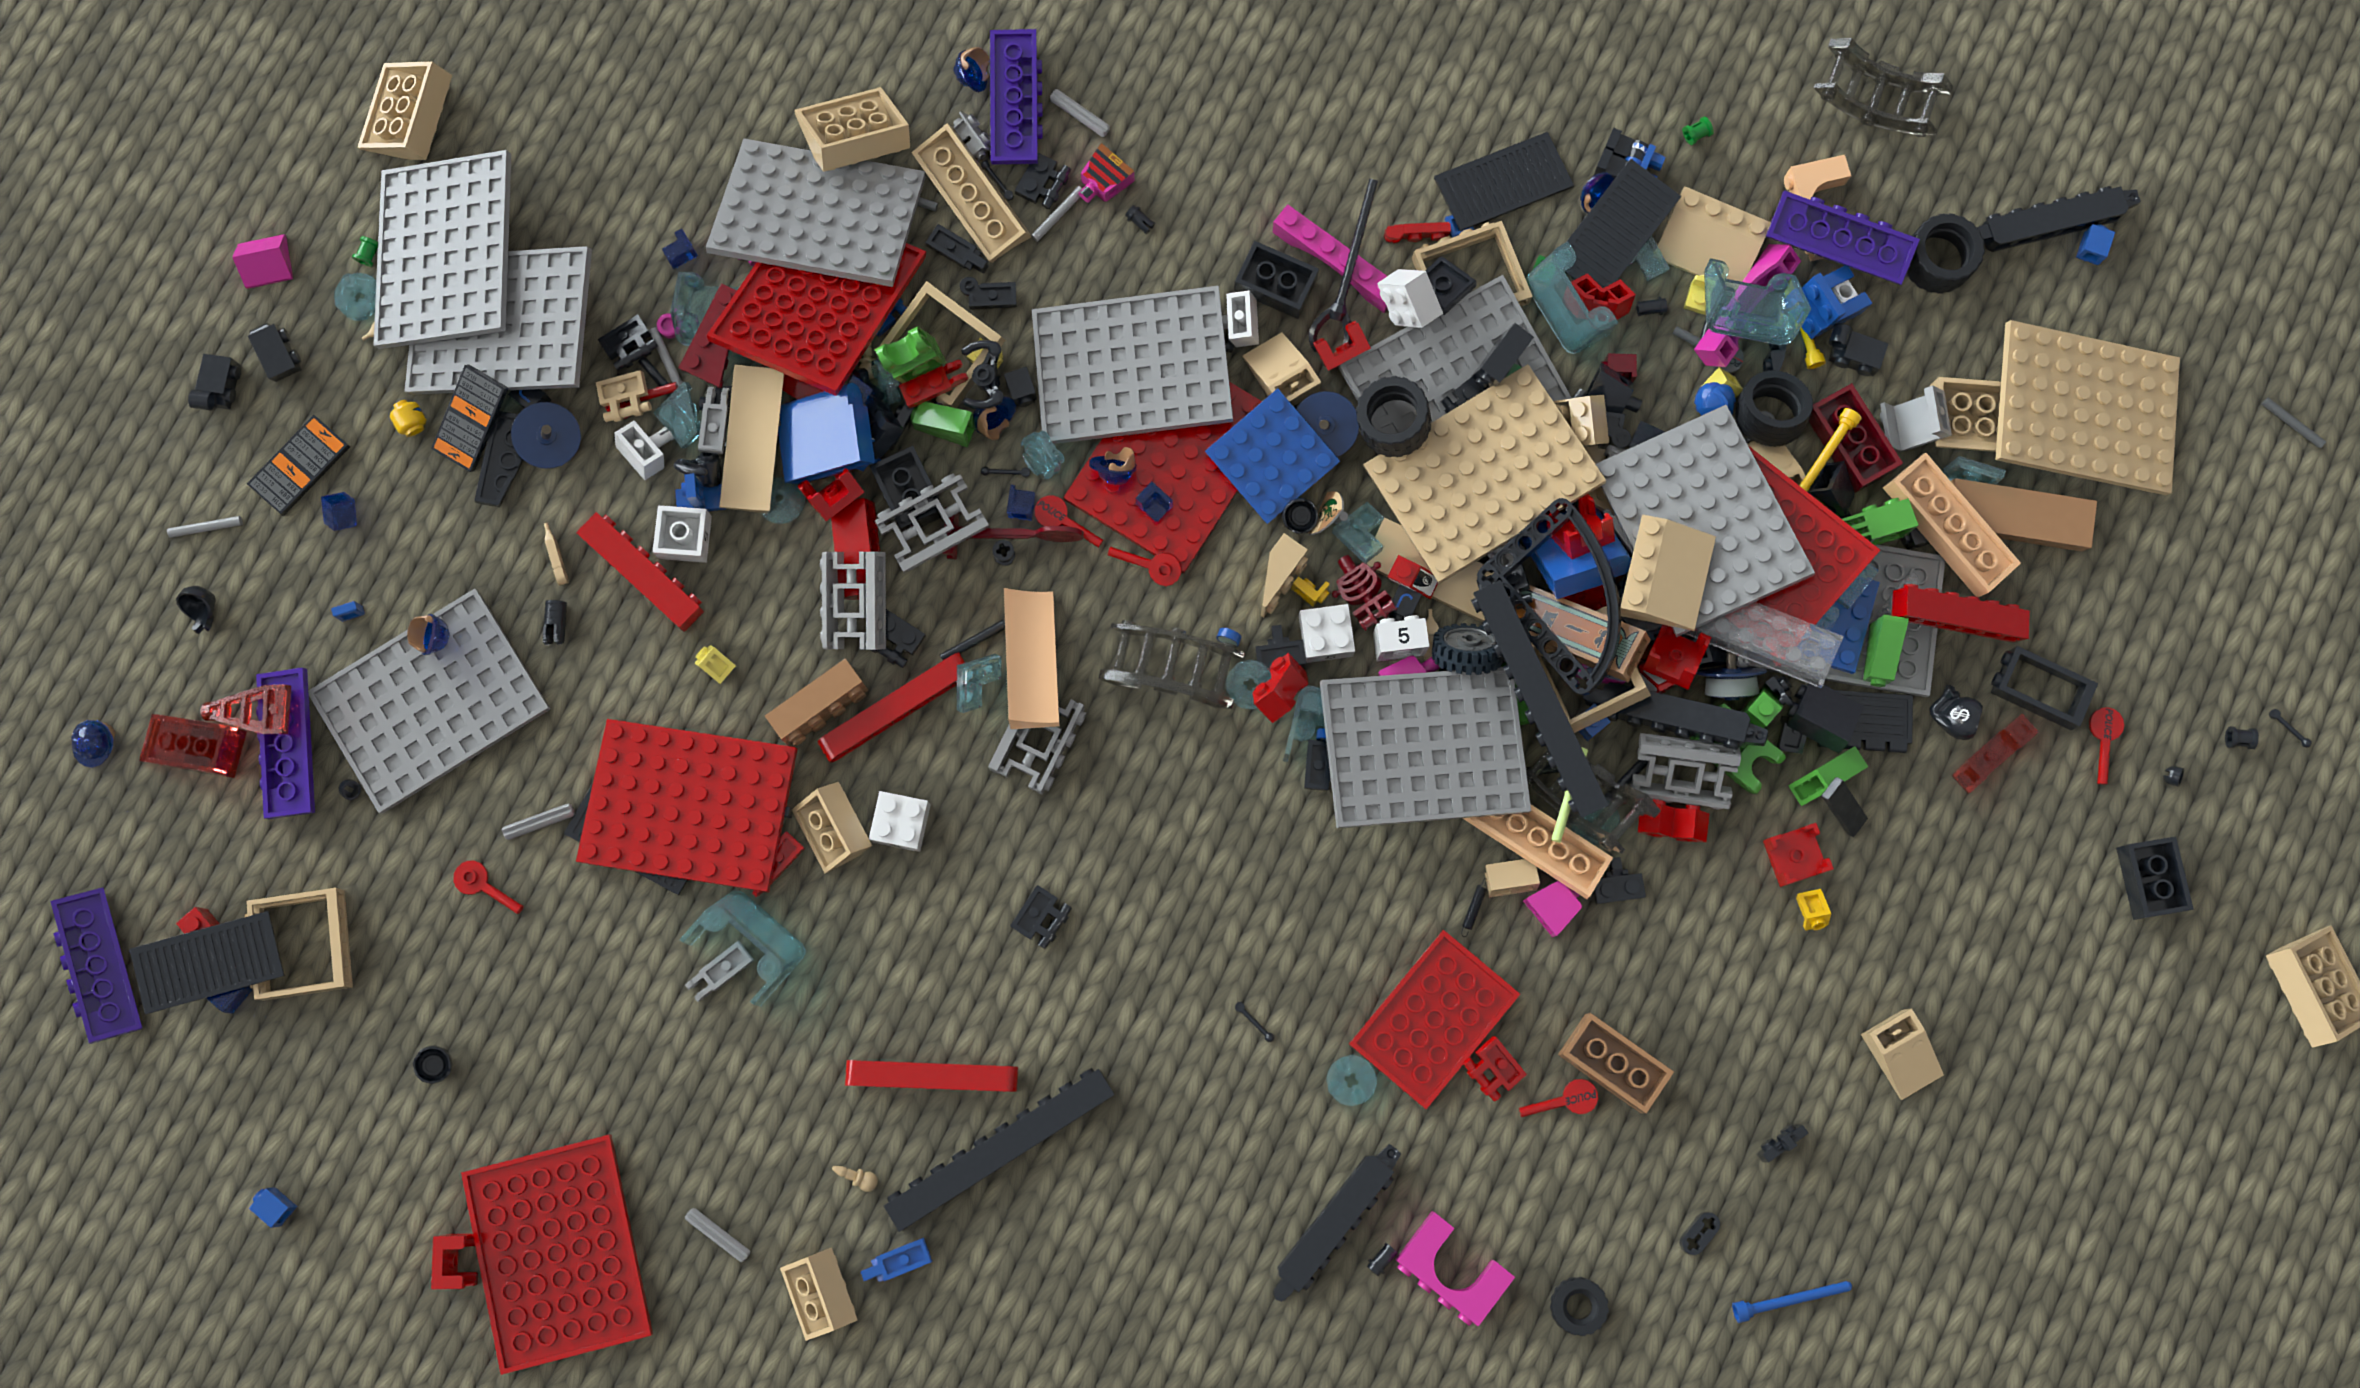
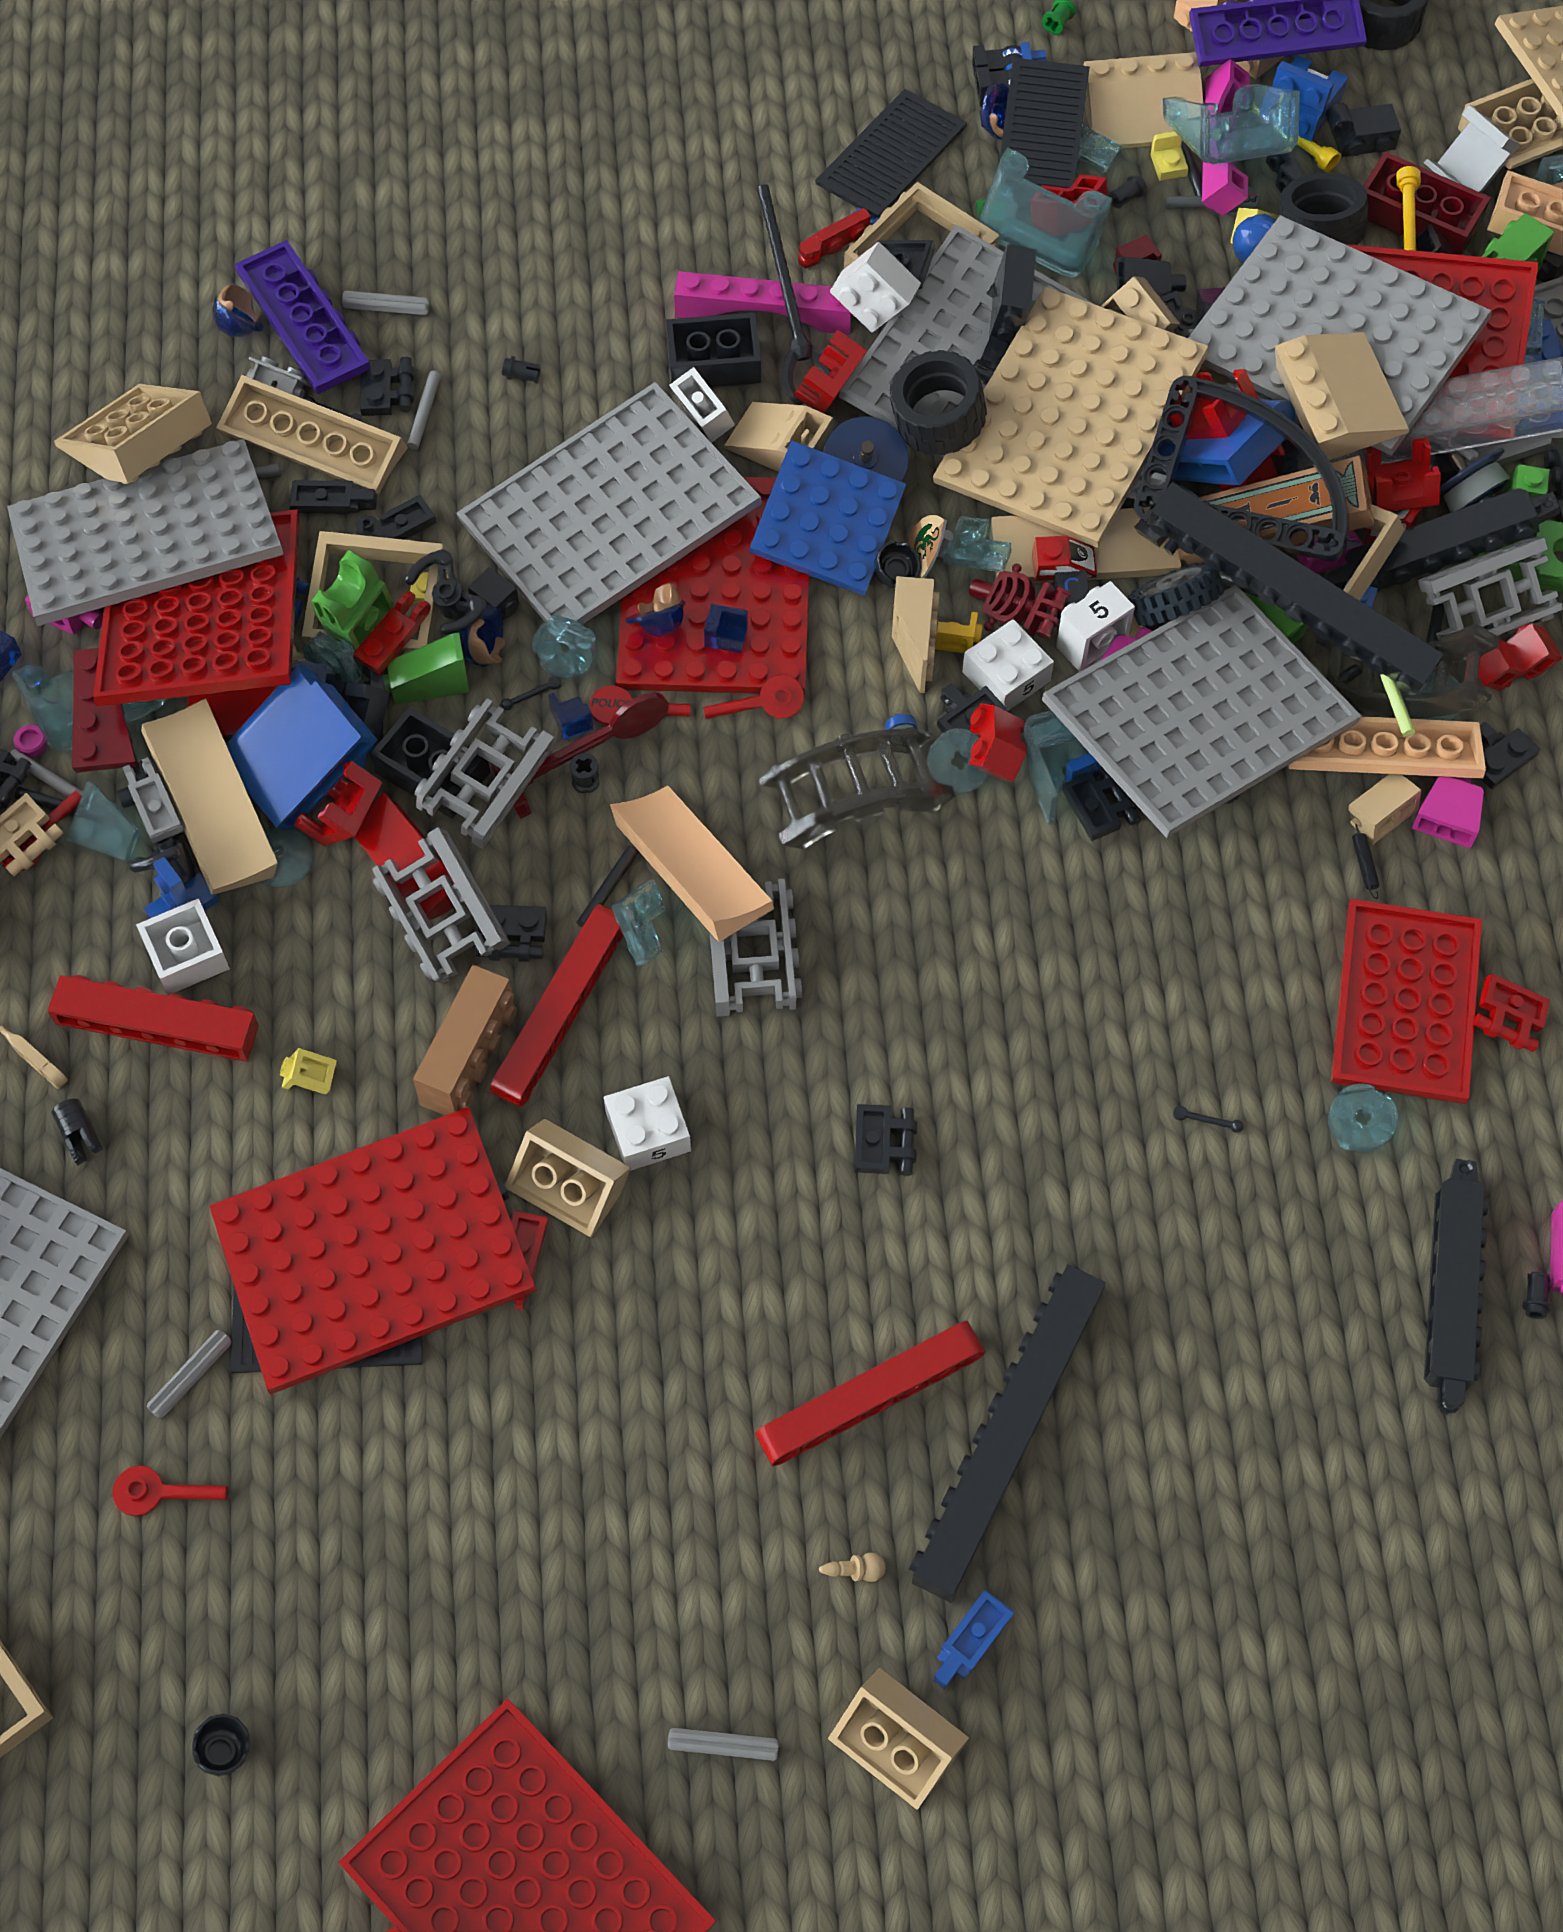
camera: 30 degrees left, 15 degrees down
(642, 450) = (76, 882): white brick -> none
(721, 969) = (531, 1417): light grey hinge -> none
(780, 947) = (593, 1348): clear light blue windscreen -> none
(1105, 175) = (455, 345): torso -> none
(1782, 686) = (1530, 458): black hinge -> none

